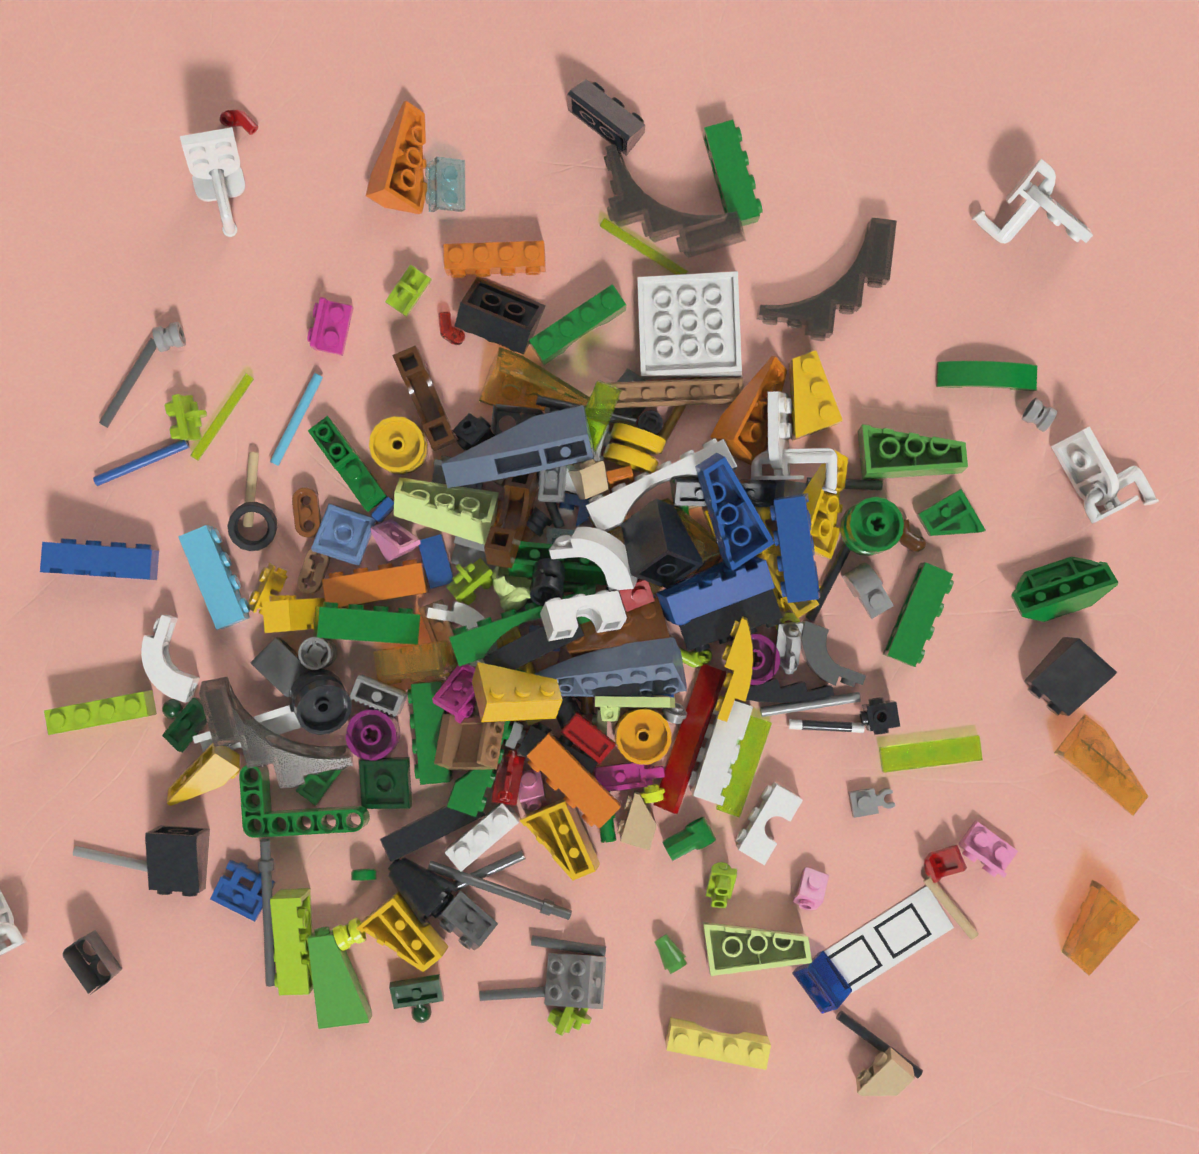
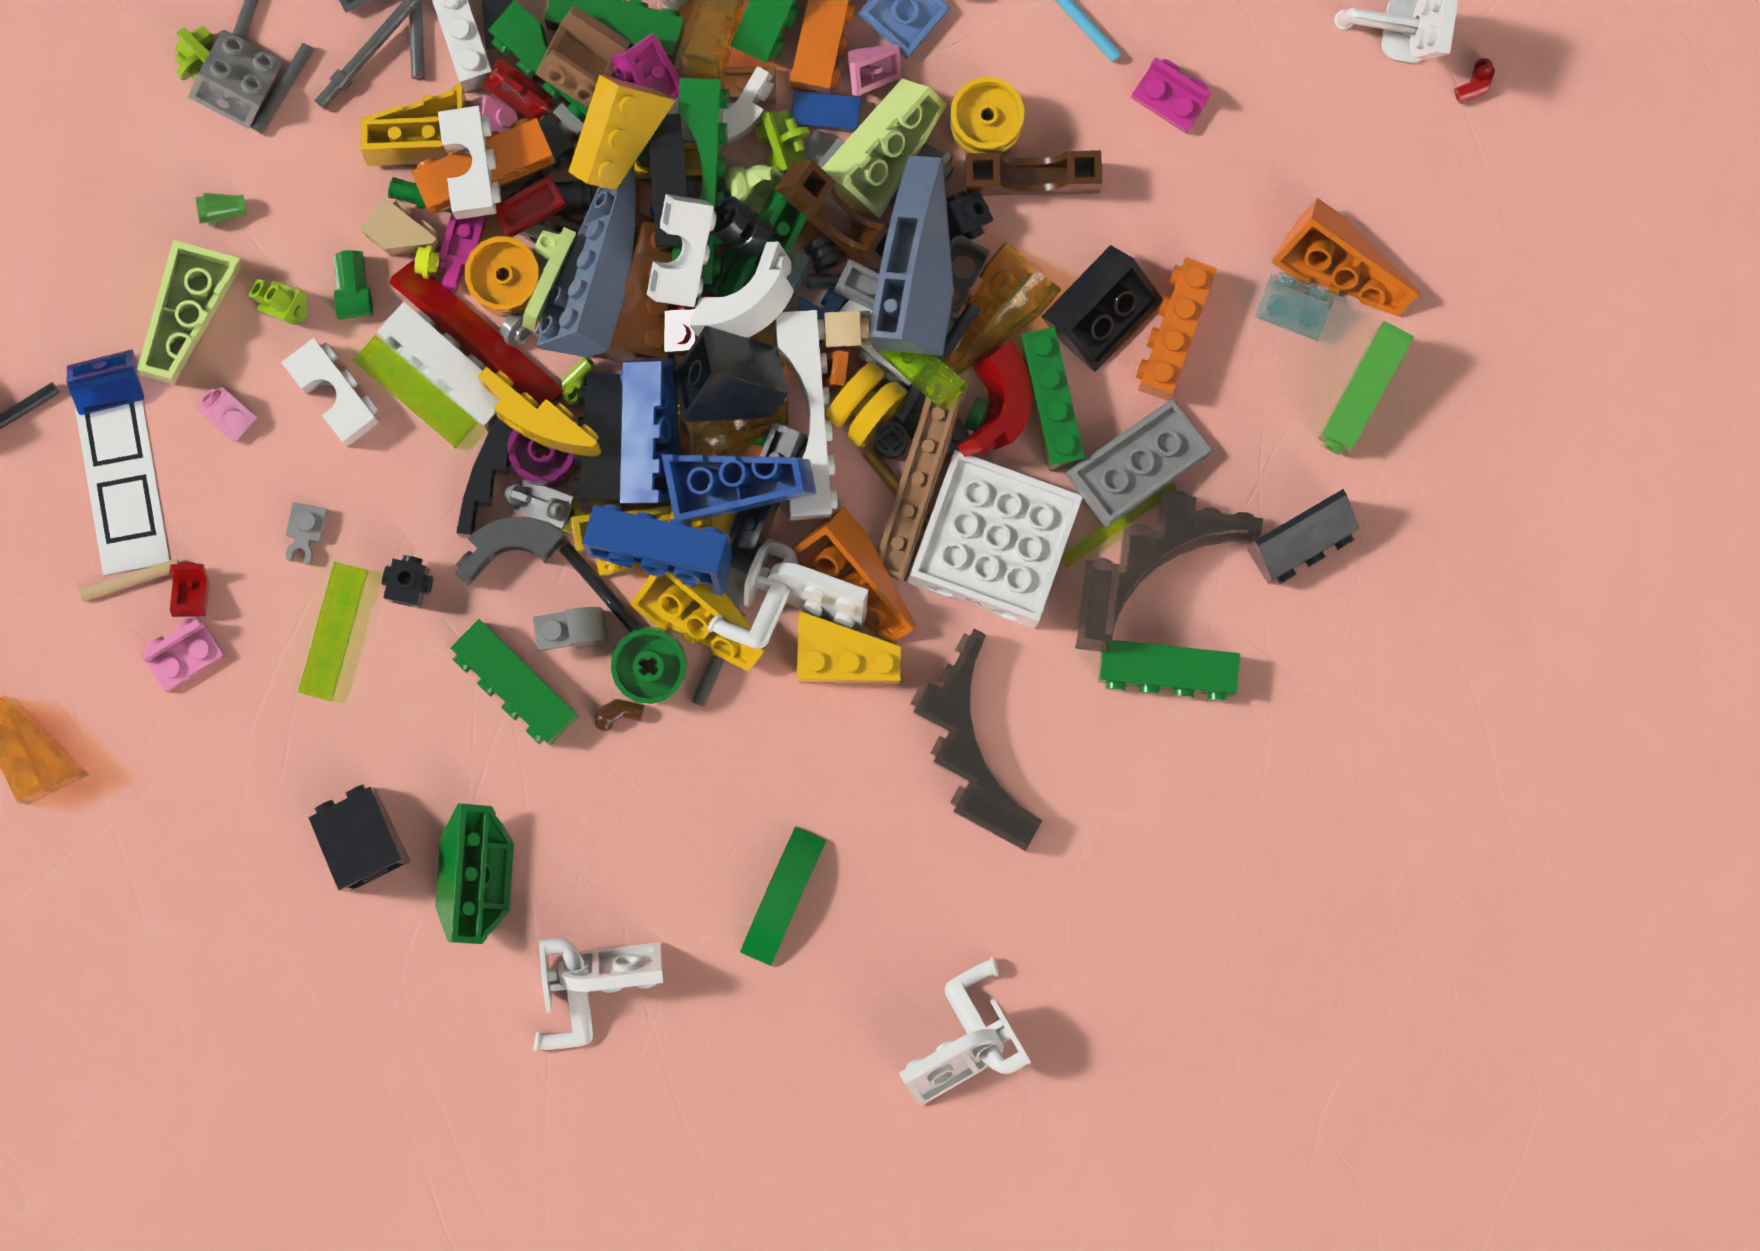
camera: 115 degrees right, 5 degrees down
(347, 463) = (990, 50): green slope -> none
(383, 509) = (914, 68): blue tile -> none
(408, 290) = (1177, 205): lime hips -> none
(448, 331) = (1109, 236): clear red arm -> none
(485, 113) = (1365, 388): none -> bright green slope
(557, 798) = (467, 132): none -> white arch
(593, 352) = (1009, 398): none -> red arch
(598, 248) = (1139, 463): none -> light grey tile
(608, 372) = (976, 414): none -> green tile
(739, 1049) = (101, 194): light yellow arch -> none
(811, 704) = (450, 535): light grey bar -> none
(826, 726) = (422, 512): black bar -> none
(900, 454) = (723, 742): bright green wedge -> none
(951, 517) = (622, 774): green wing -> none
(1039, 414) = (700, 945): light grey wheel -> none
(1098, 760) = (232, 841): clear yellow wedge -> none

